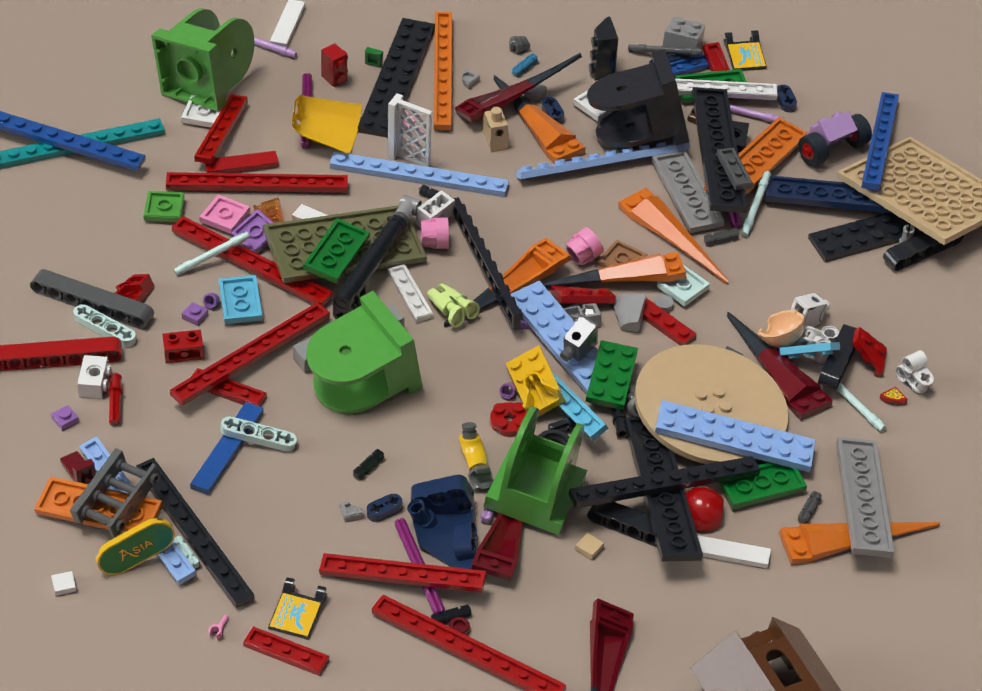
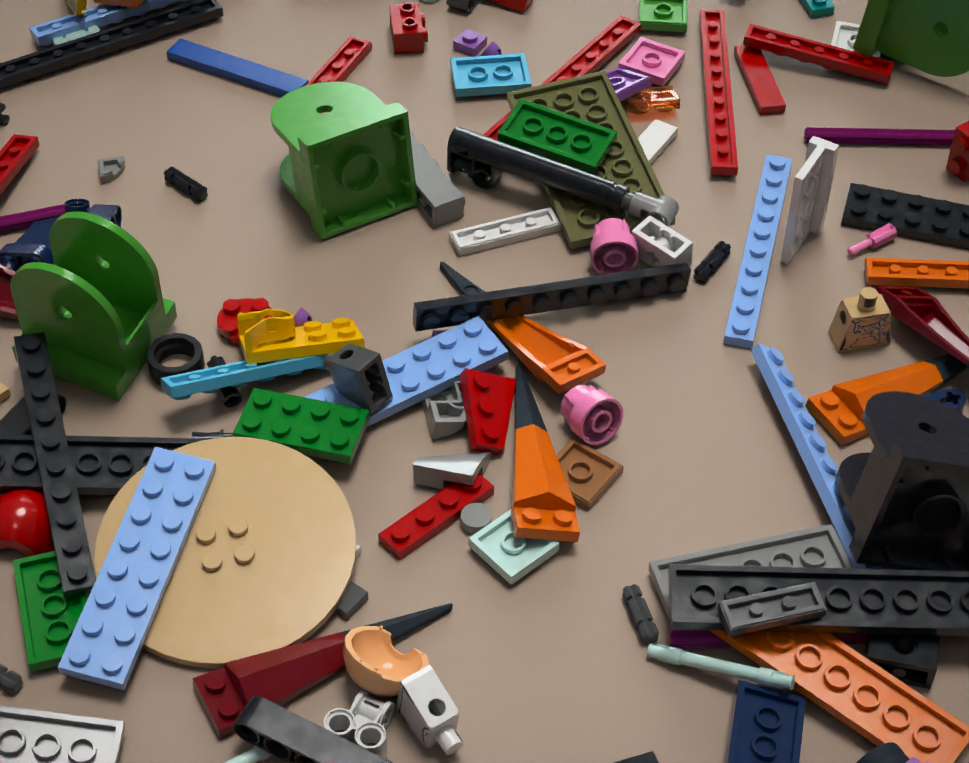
camera: 95 degrees right, 0 degrees up
(190, 264) = (581, 55): light aqua piece -> none
(249, 354) = (380, 73): red plate -> none
(257, 436) = (247, 86): light aqua beam -> none
(327, 121) = (860, 138): yellow piece -> none
(384, 507) = (111, 194): dark blue beam -> none
(453, 304) = (469, 261): yellowish green piece -> none
(475, 455) = (192, 275): piece -> none
(655, 215) = (683, 521): orange plate -> none
(810, 350) = (321, 693): medium azure plate -> none

